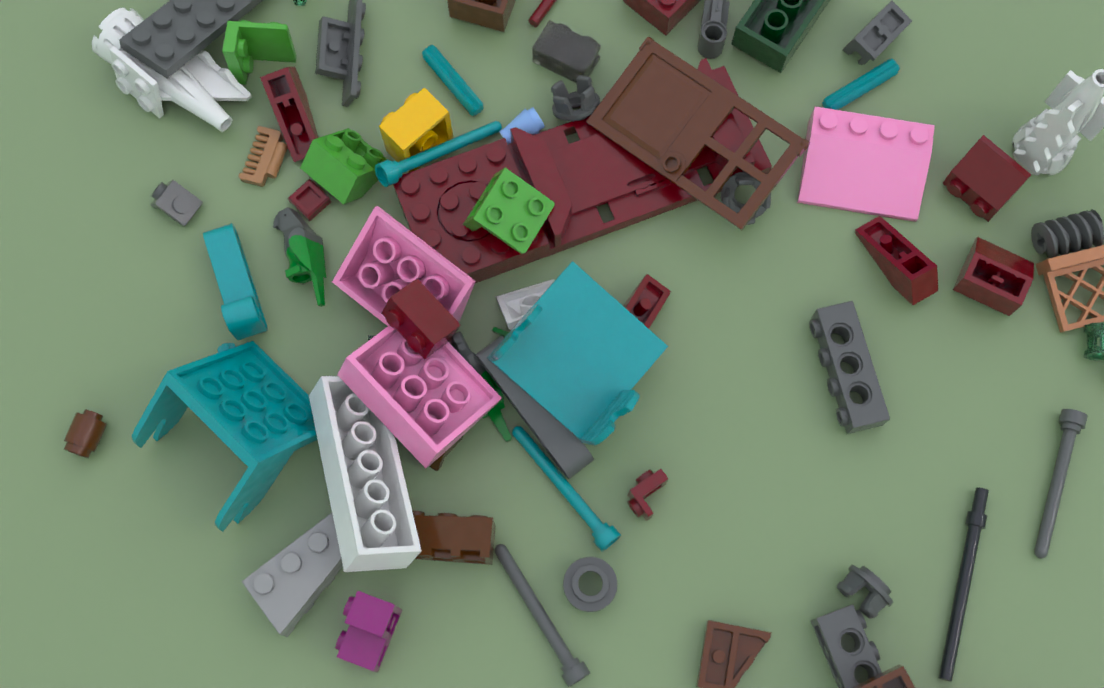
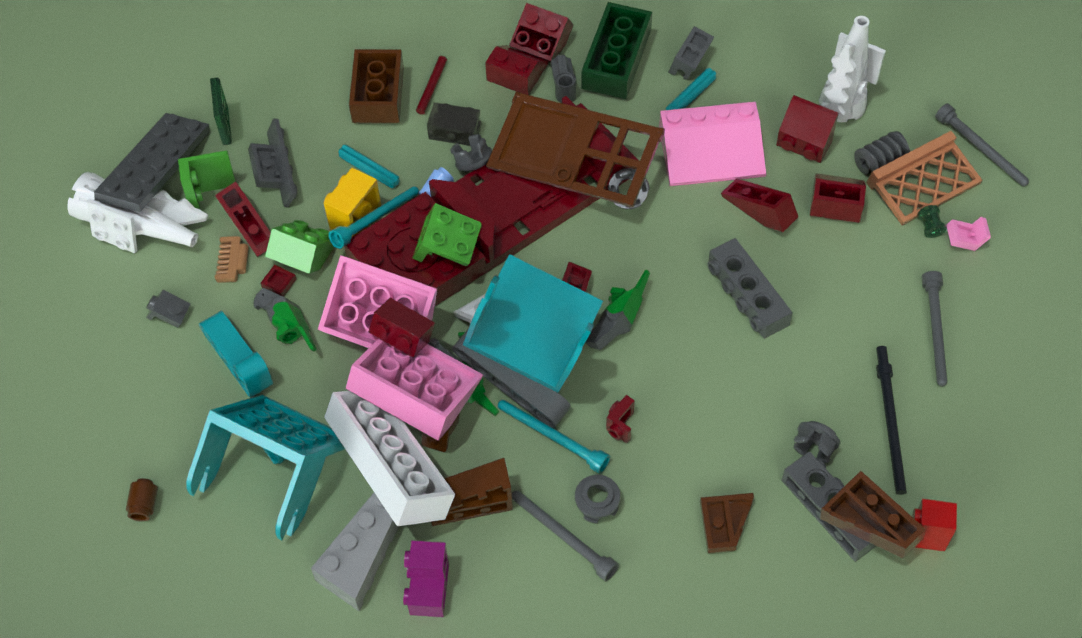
camera: 15 degrees left, 15 degrees down
(685, 357) = (619, 314): none -> animal

